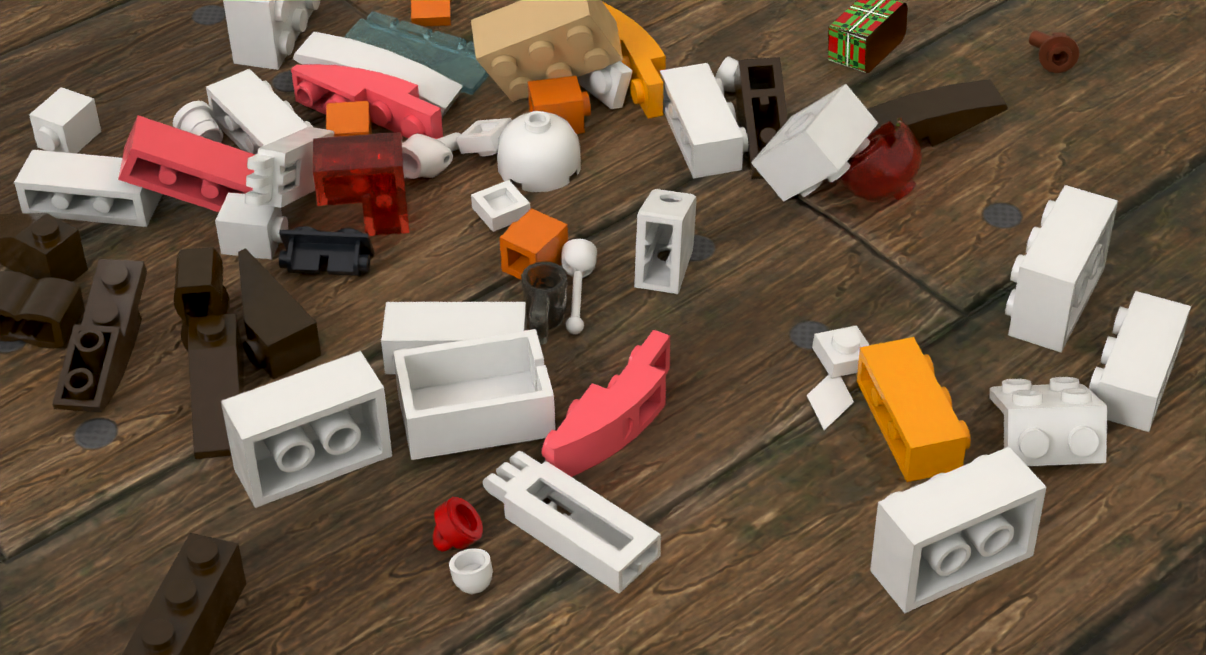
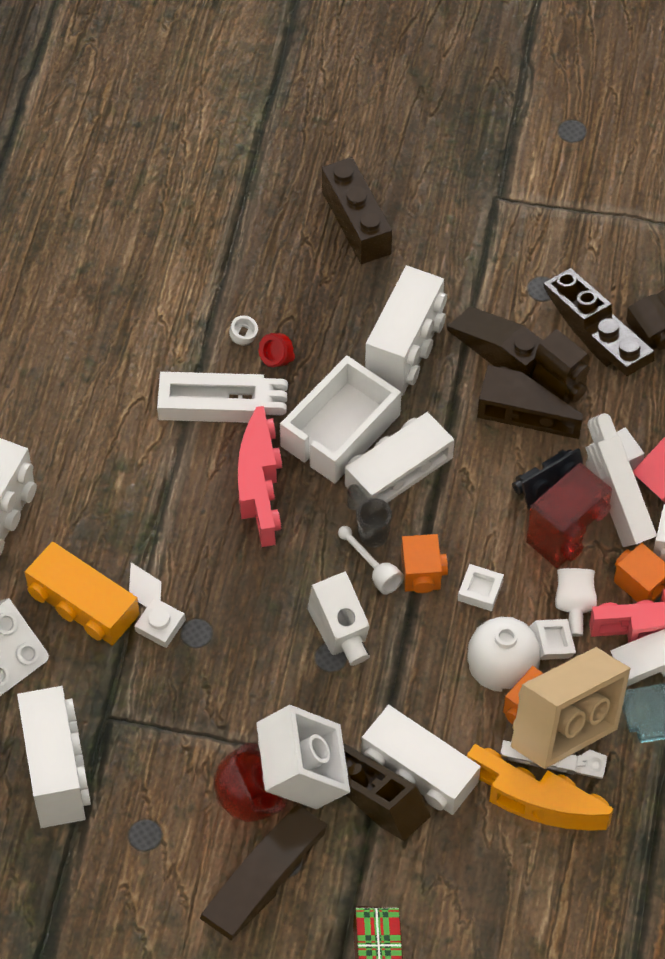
camera: 140 degrees right, 15 degrees up
(727, 73) = (442, 832): white hinge -> none

